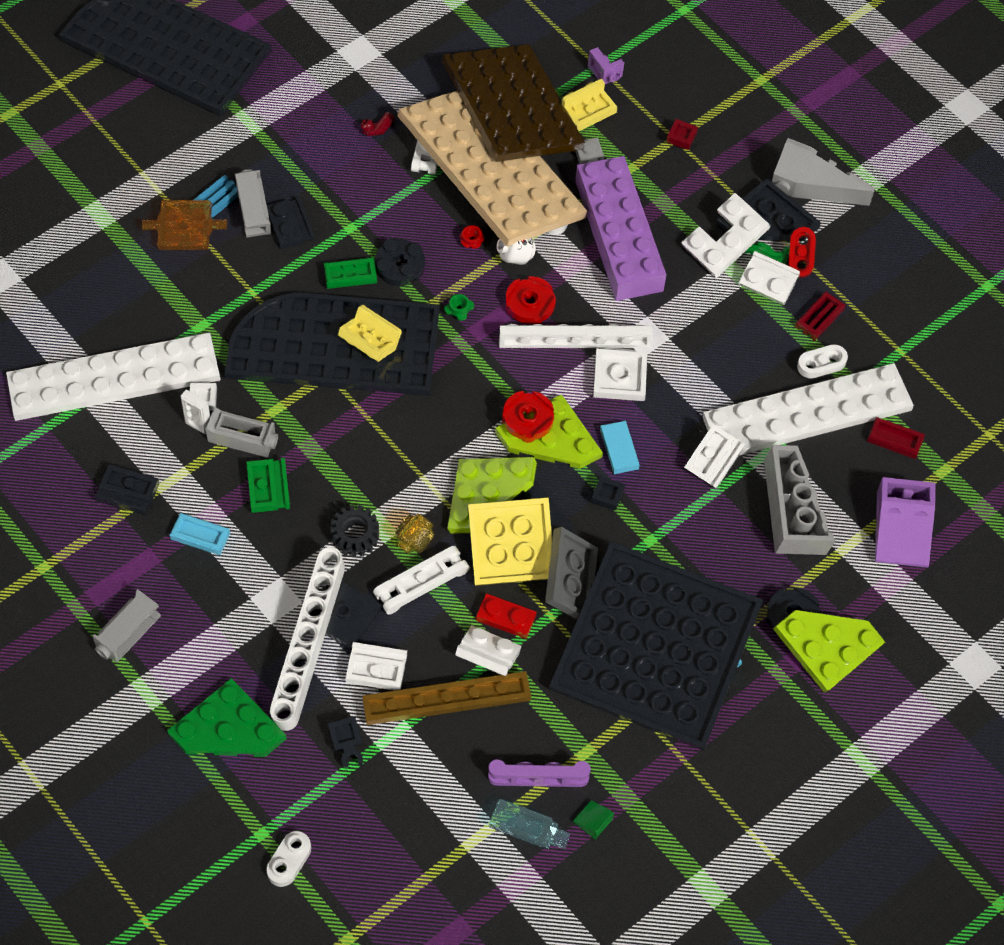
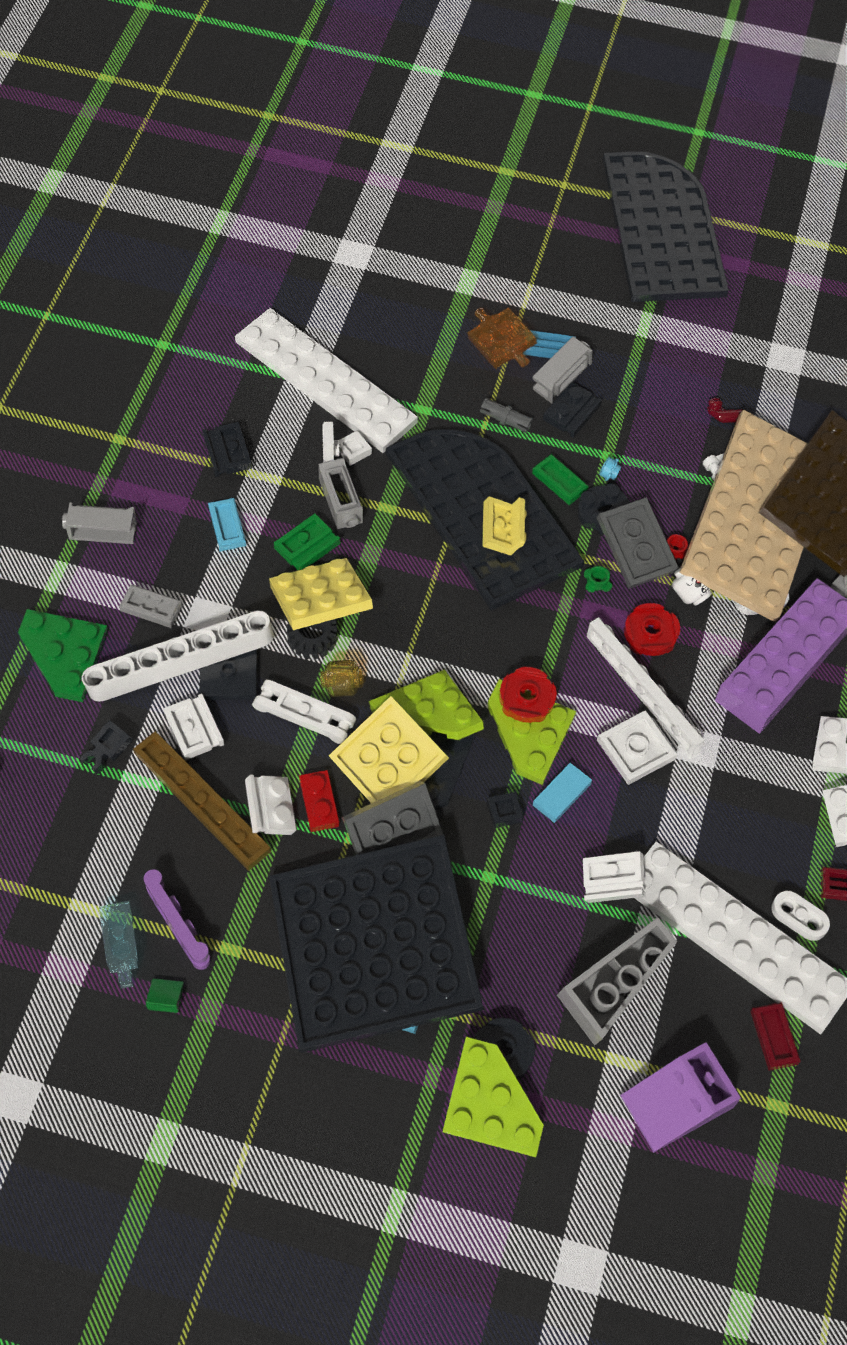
camera: 55 degrees right, 0 degrees up
(237, 634) = (150, 606): none -> light grey plate
(260, 270) = (506, 415): none -> dark grey pin
(329, 501) = (320, 593): none -> light yellow plate
(367, 233) = (610, 469): none -> medium azure plate
(452, 258) = (637, 543): none -> dark grey plate

